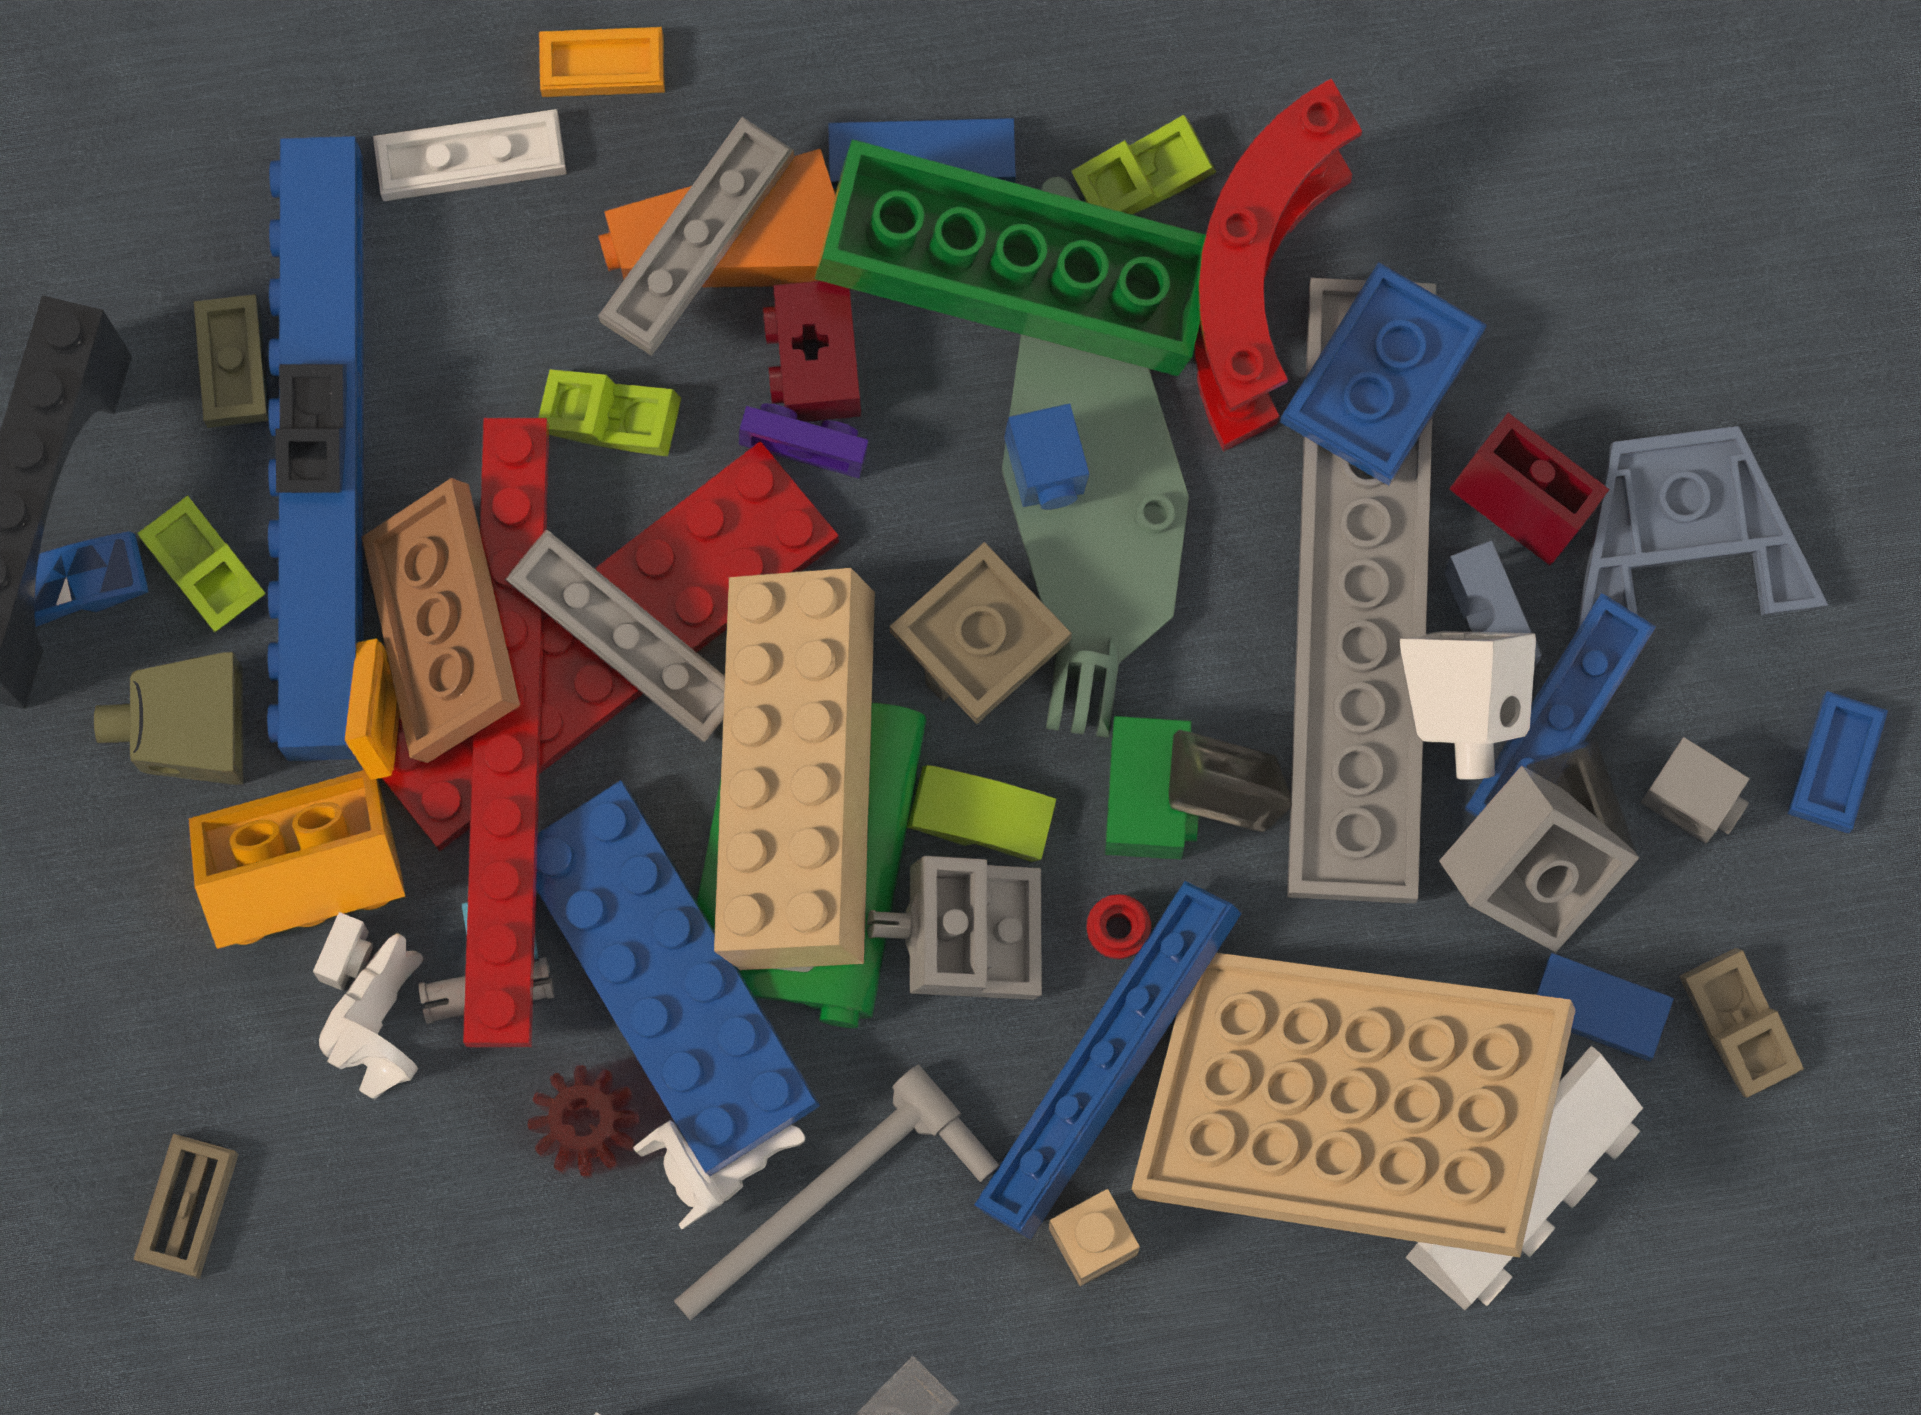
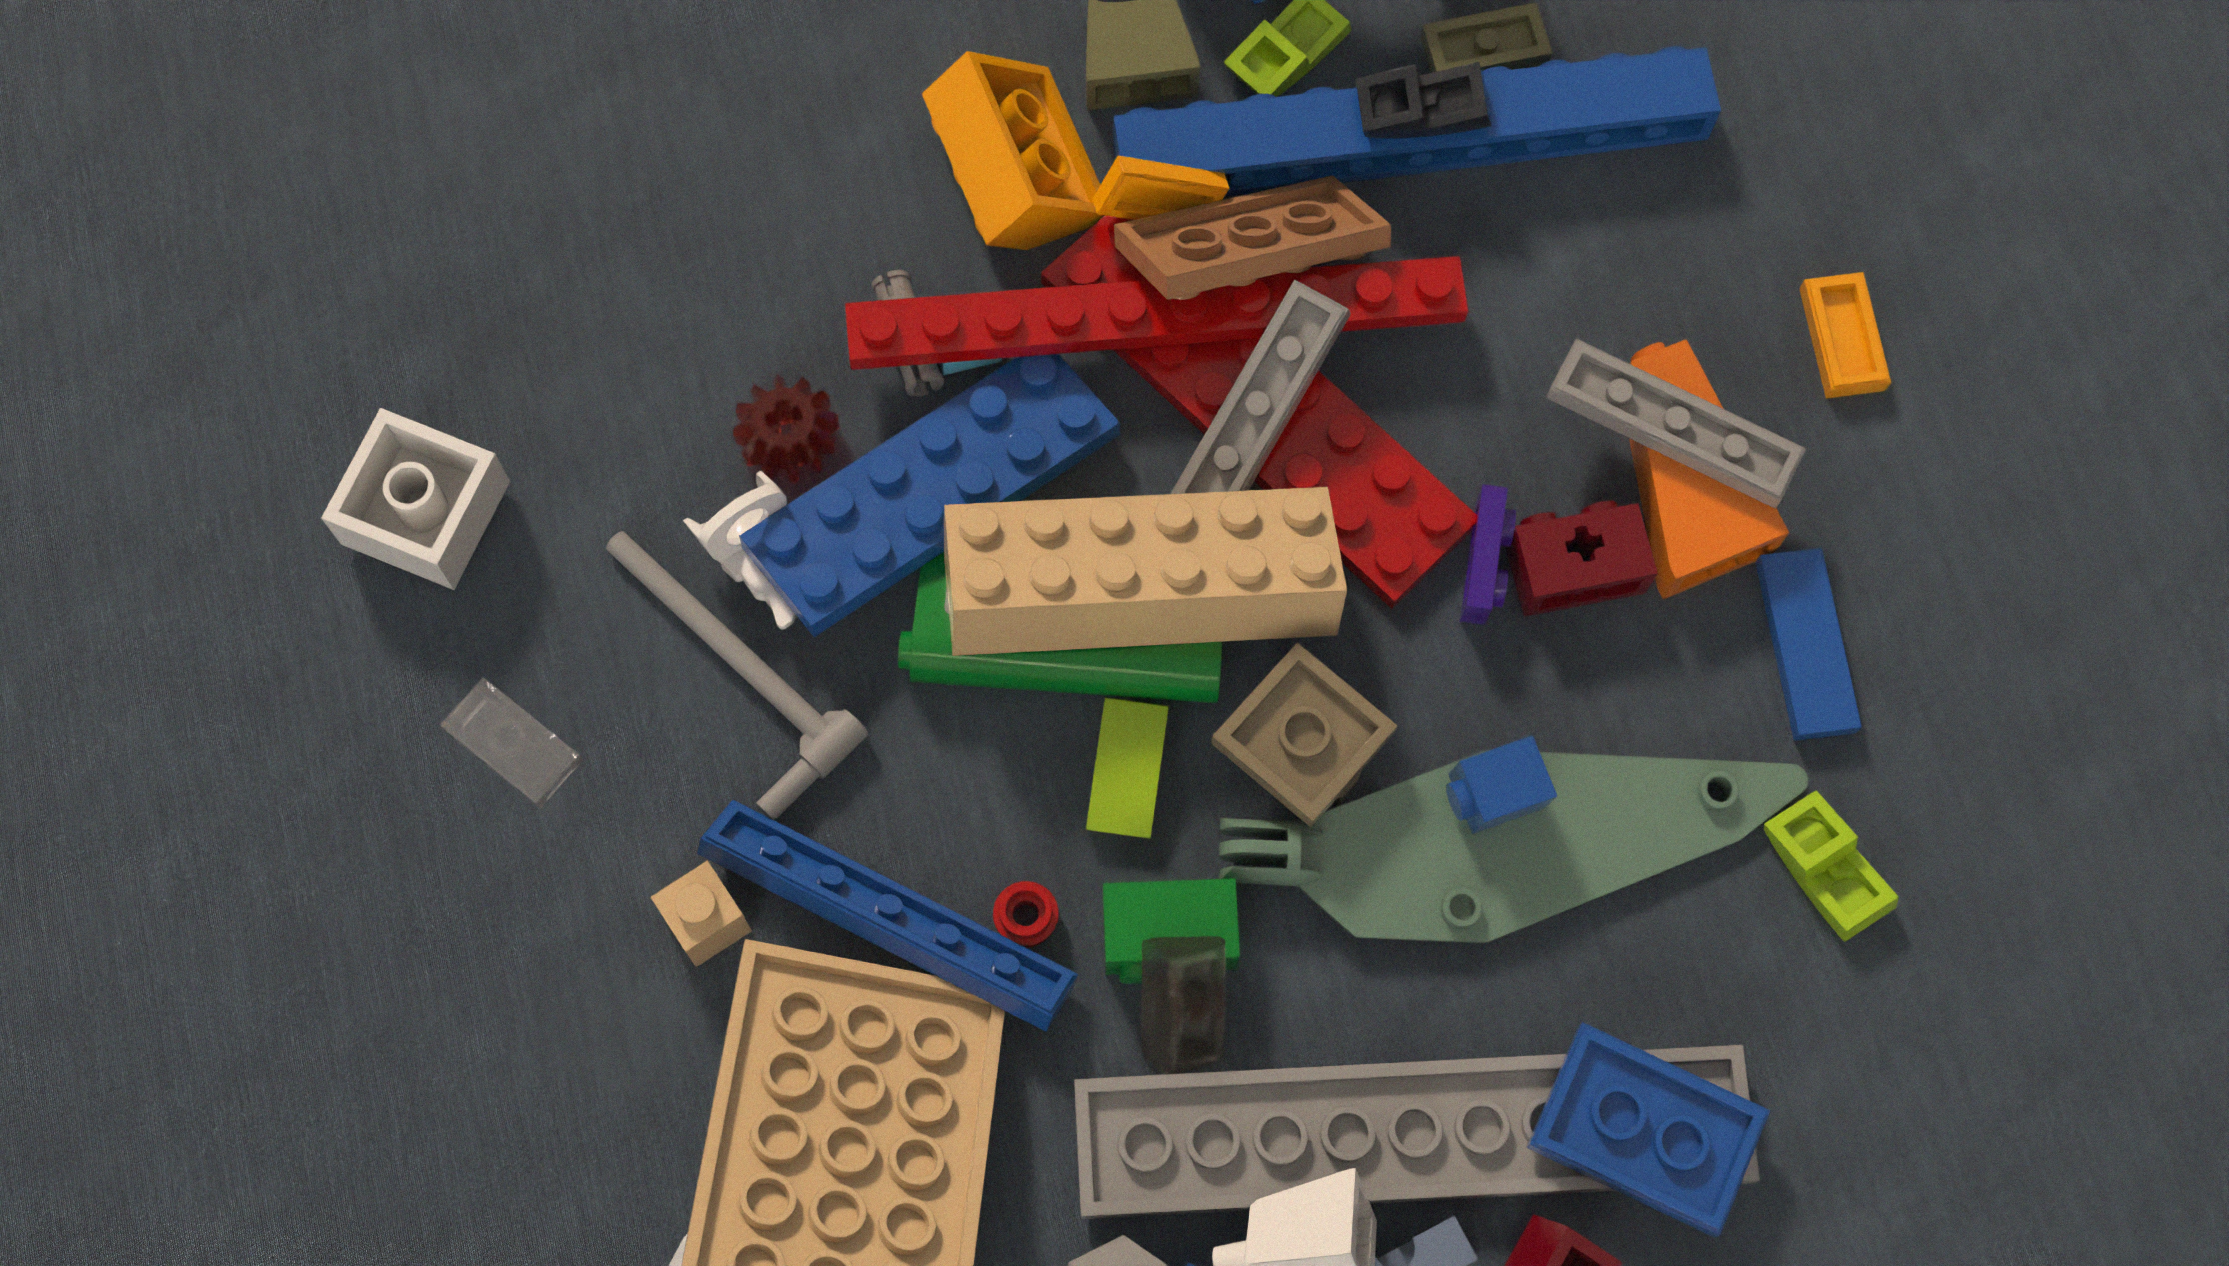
camera: 80 degrees right, 5 degrees down
(210, 1214) = (684, 116): dark tan tile -> none
(344, 952) = (930, 202): white plate -> none
(354, 1023) = (865, 221): white hair -> none
(469, 155) = (1727, 229): white tile -> none
(609, 414) = (1488, 379): lime slope -> none
(969, 929) = (1003, 763): light grey plate -> none
(1014, 258) = (1705, 728): green brick -> none
(1267, 194) = (1763, 957): red fence -> none

